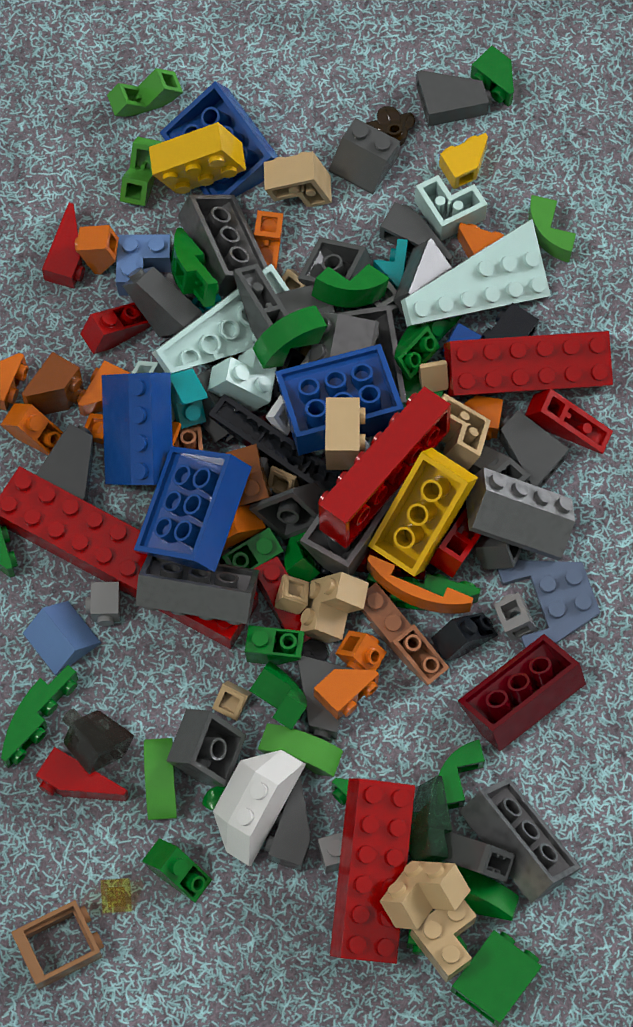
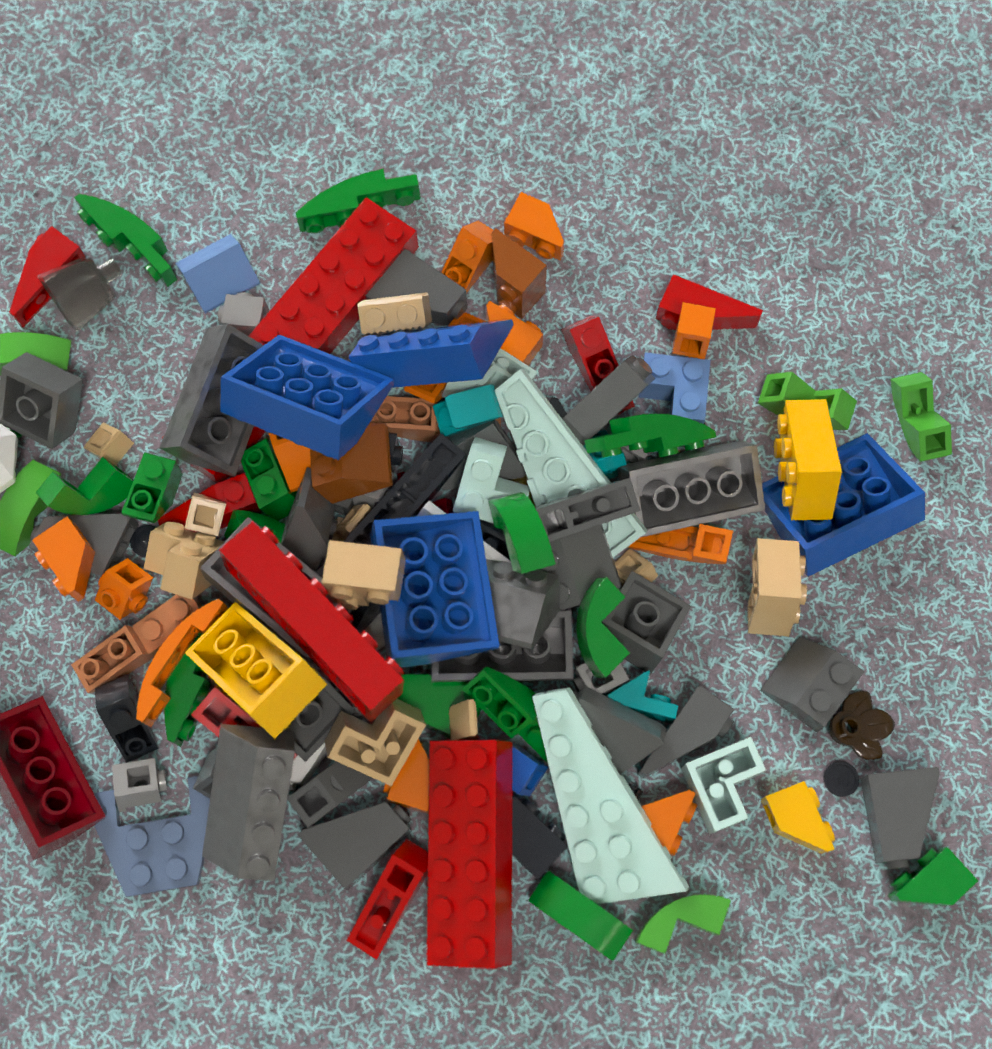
camera: 100 degrees right, 5 degrees up
(100, 469) = (394, 313): none -> tan brick
(430, 138) = (841, 779): none -> black piece
(558, 293) = (580, 915): none -> green brick

